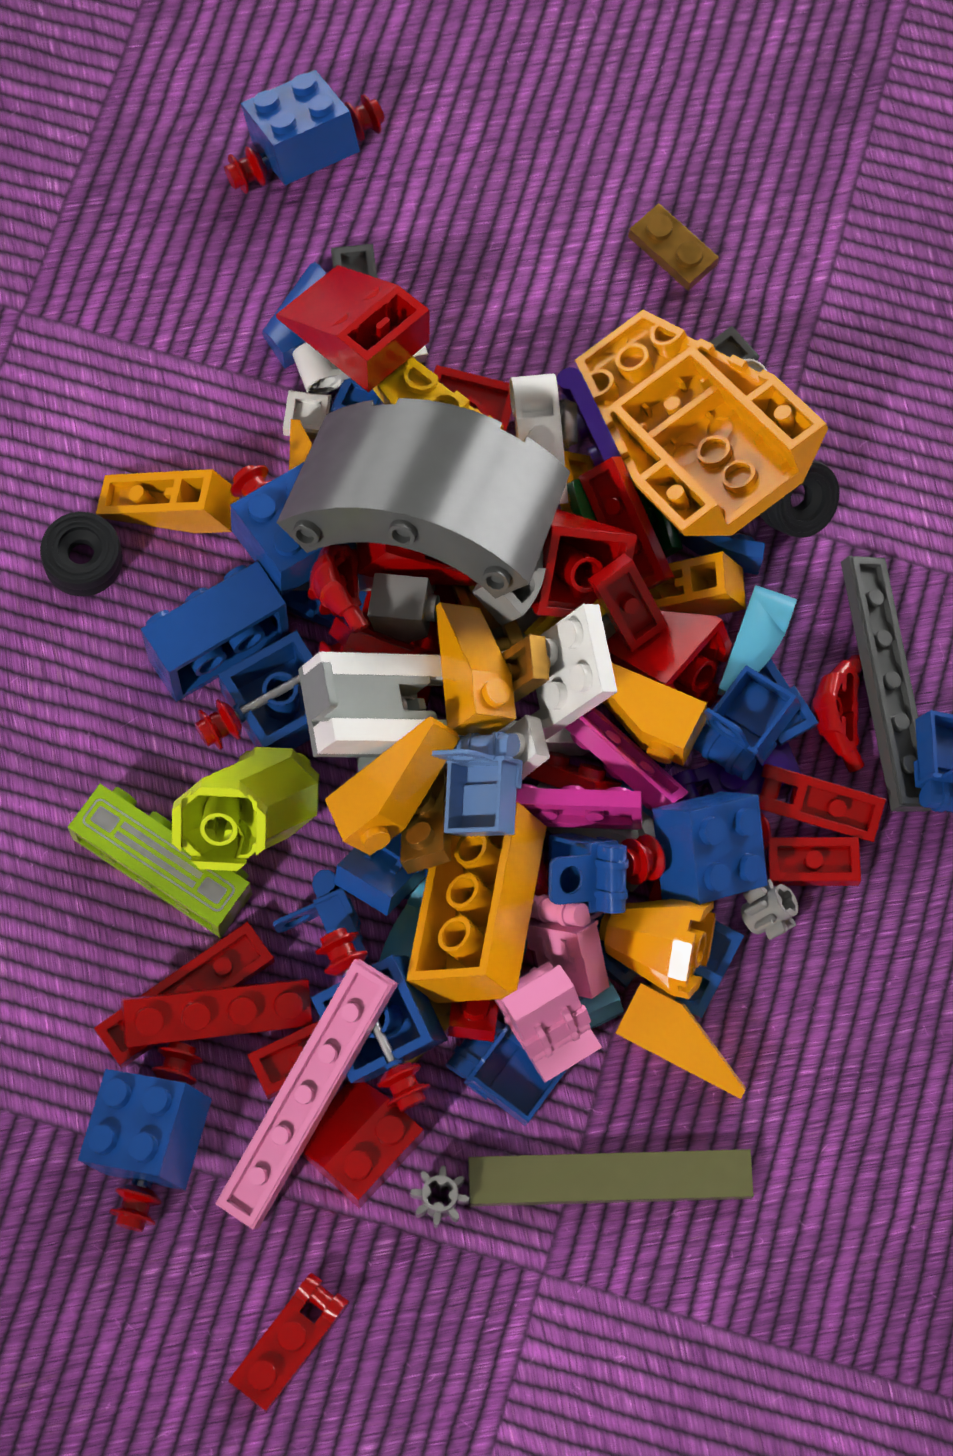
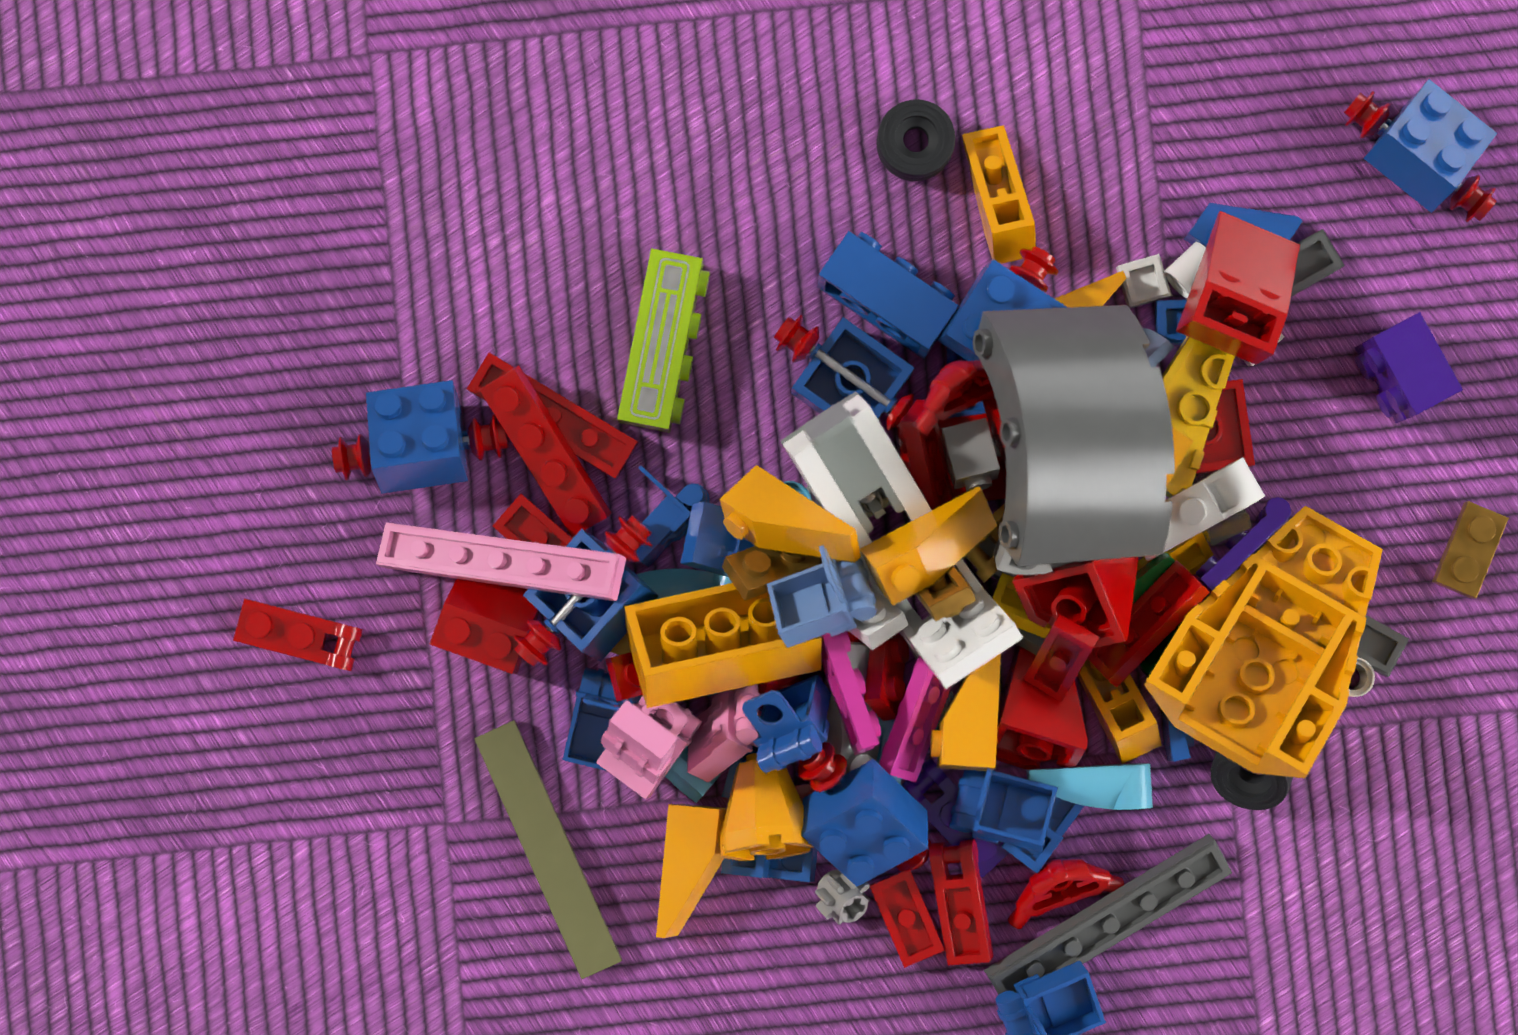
camera: 75 degrees right, 15 degrees up
(245, 808) = (728, 396): neon yellow brick -> none
(441, 1183) = (456, 713): light grey gear -> none
(490, 222) = (1407, 369): none -> dark purple piece

